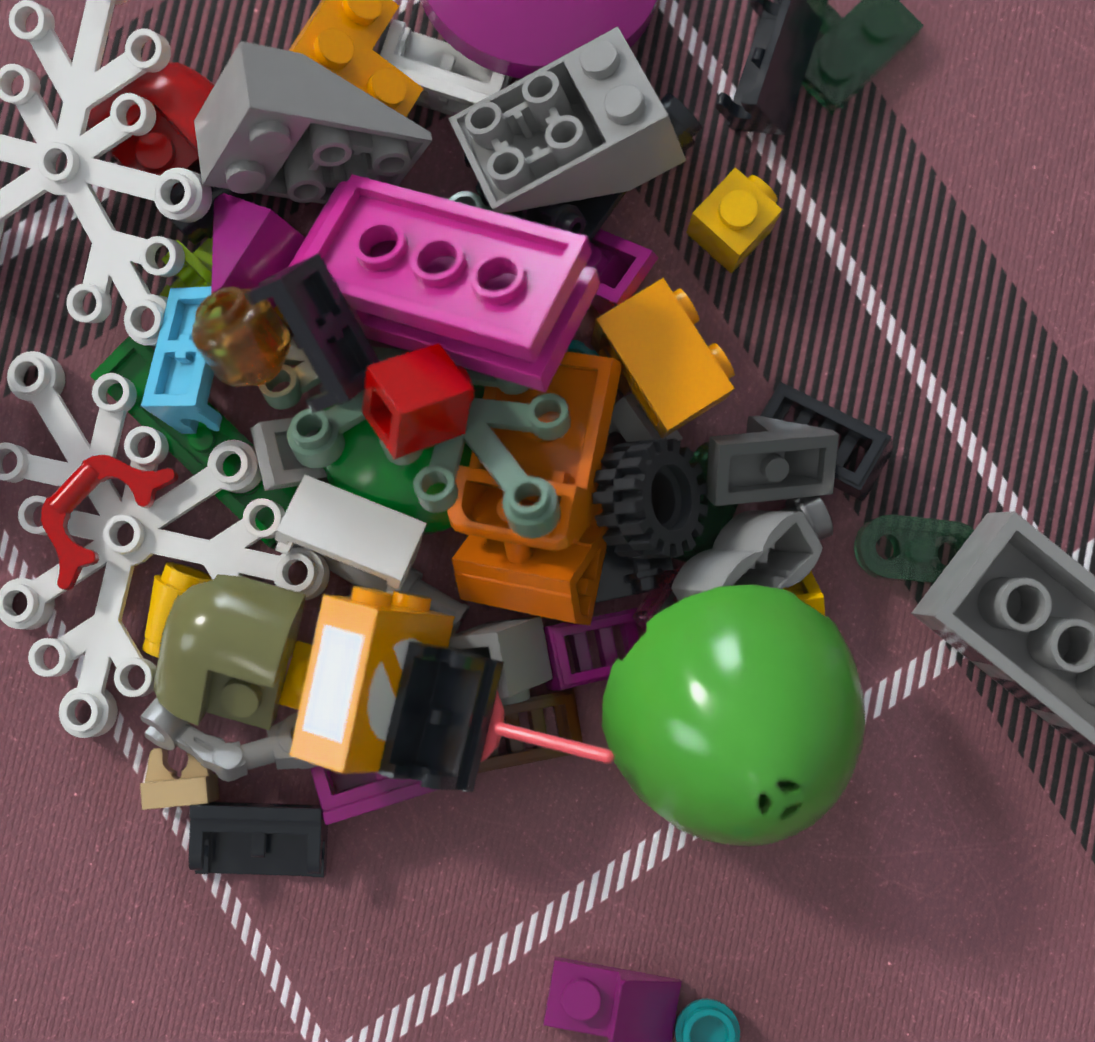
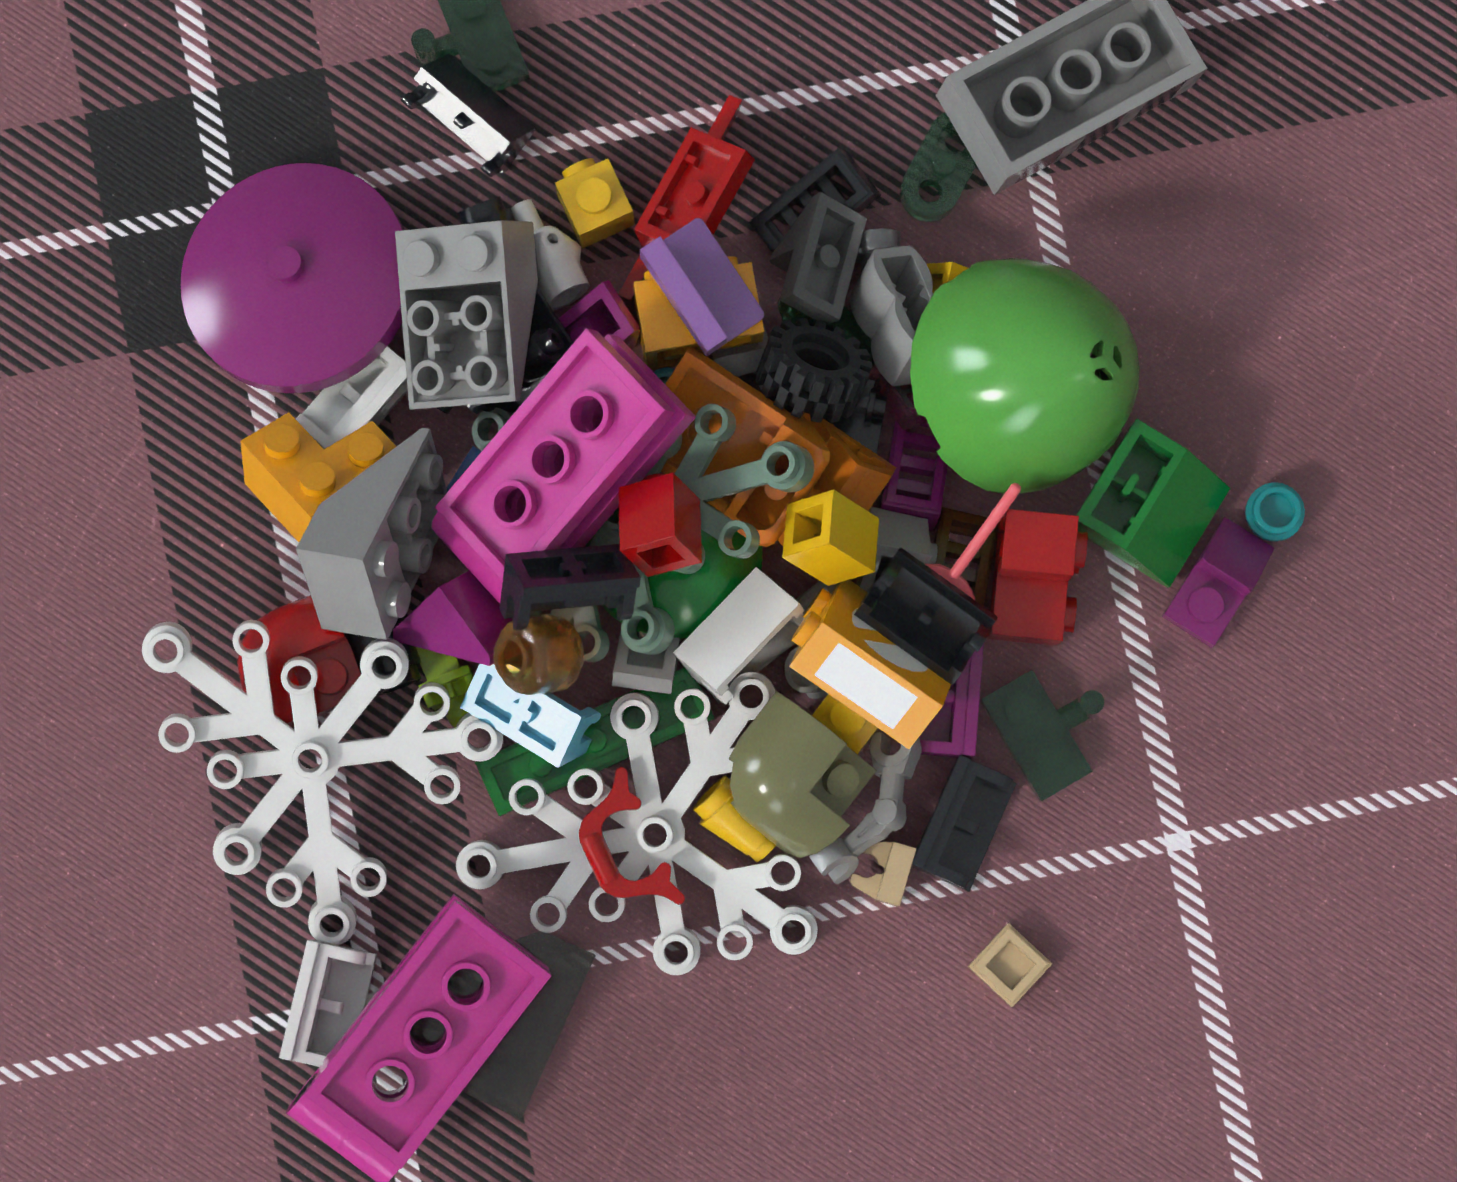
camera: 65 degrees left, 0 degrees up
(138, 944) = (1009, 965): none -> tan tile
(384, 880) = (1040, 734): none -> clear green plate
(480, 584) = (830, 537): none -> yellow brick
(535, 810) = (1031, 576): none -> red brick
(660, 202) = (557, 259): none -> white piece
(662, 900) = (1151, 503): none -> green slope
(686, 344) = (702, 285): none -> medium lavender panel
(783, 305) = (695, 186): none -> red plate

